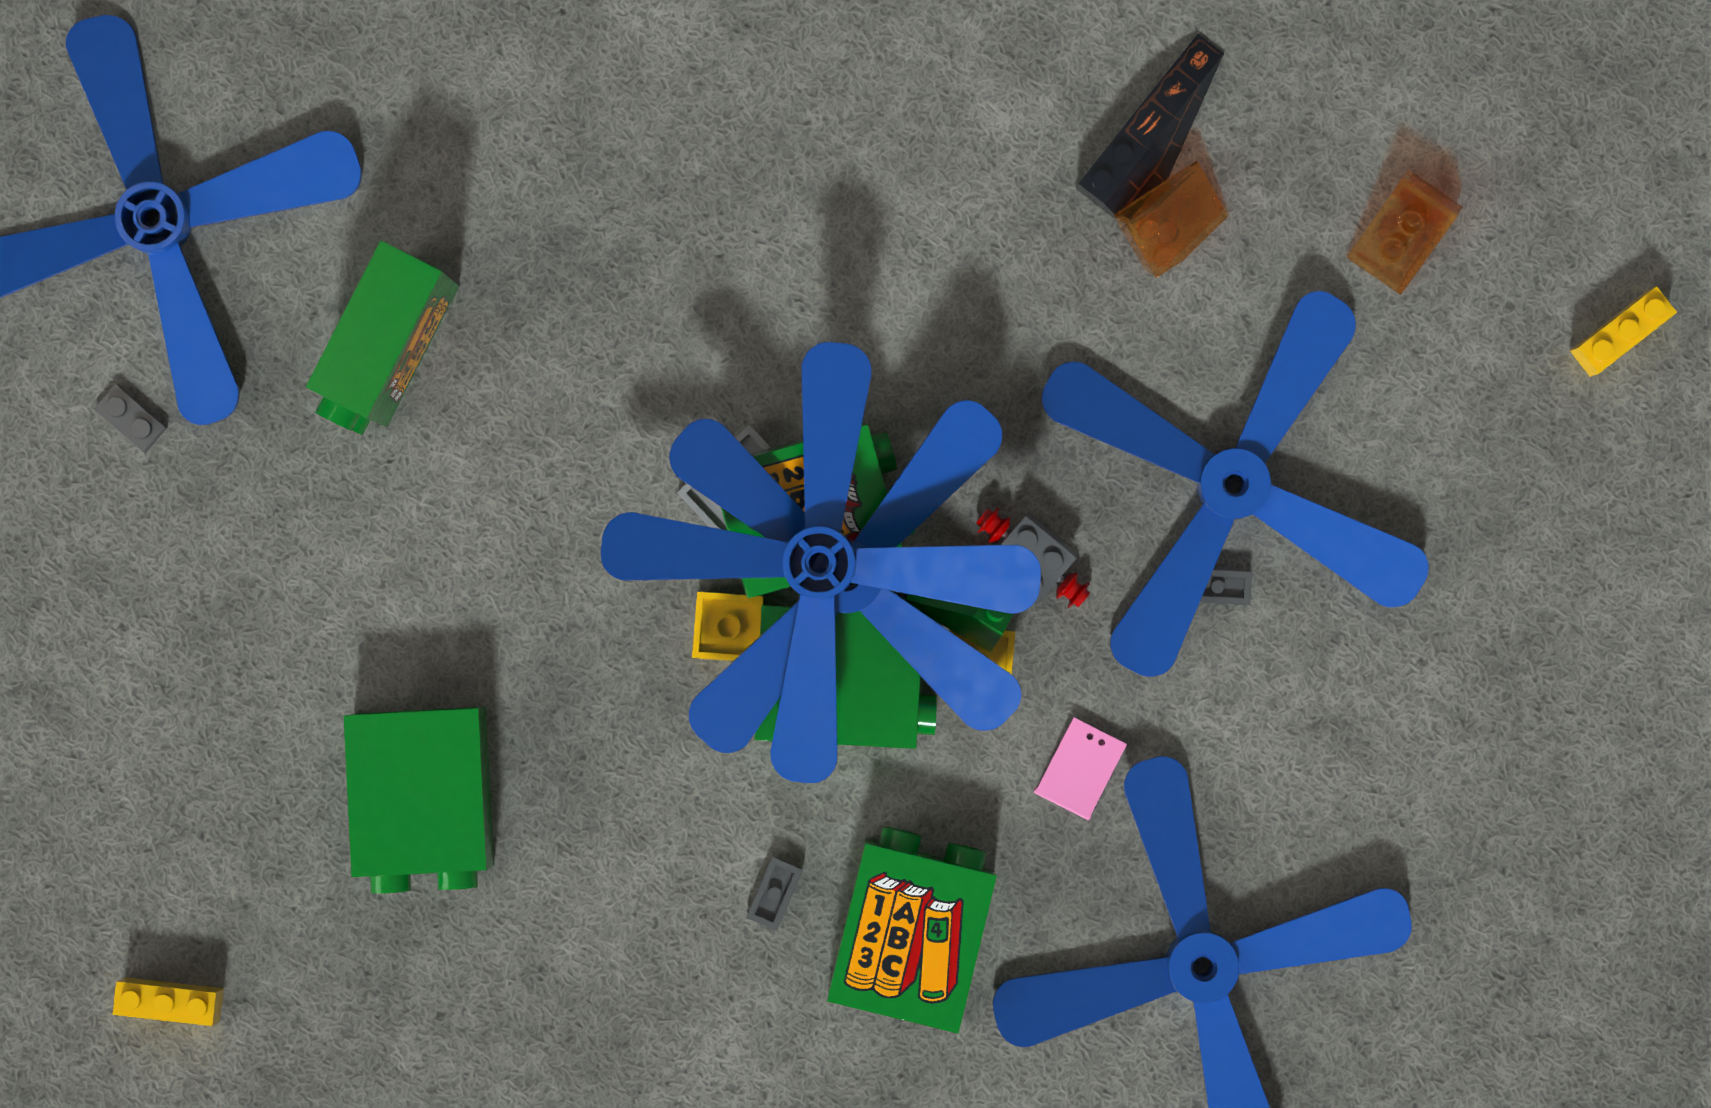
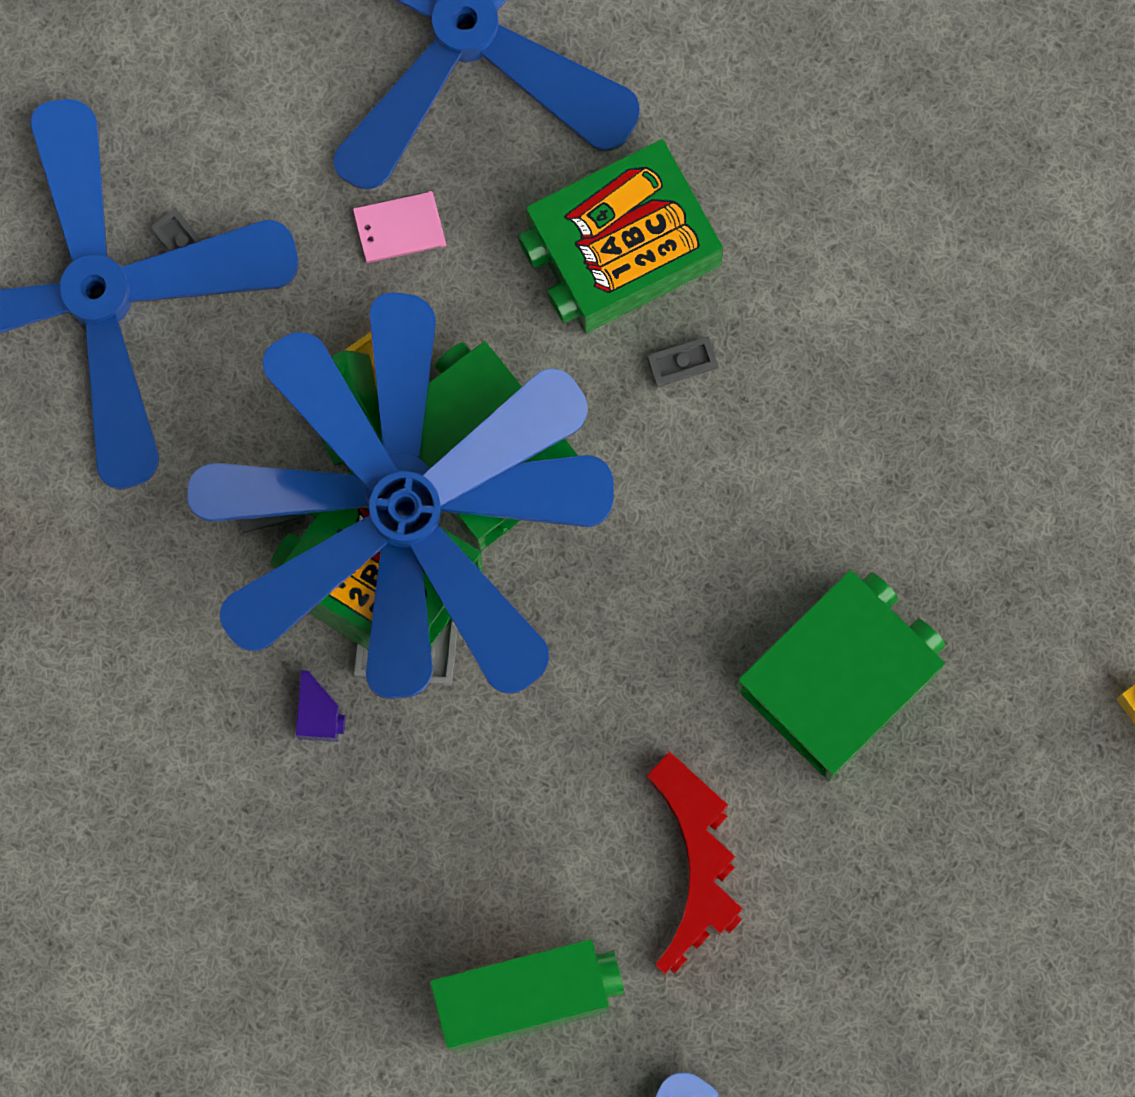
camera: 130 degrees left, 10 degrees down
(371, 568) = (707, 904): none -> red arch
(725, 625) = (519, 562): yellow plate -> none
(744, 372) = (317, 712): none -> dark purple slope
(1051, 551) = (262, 398): dark grey plate -> none

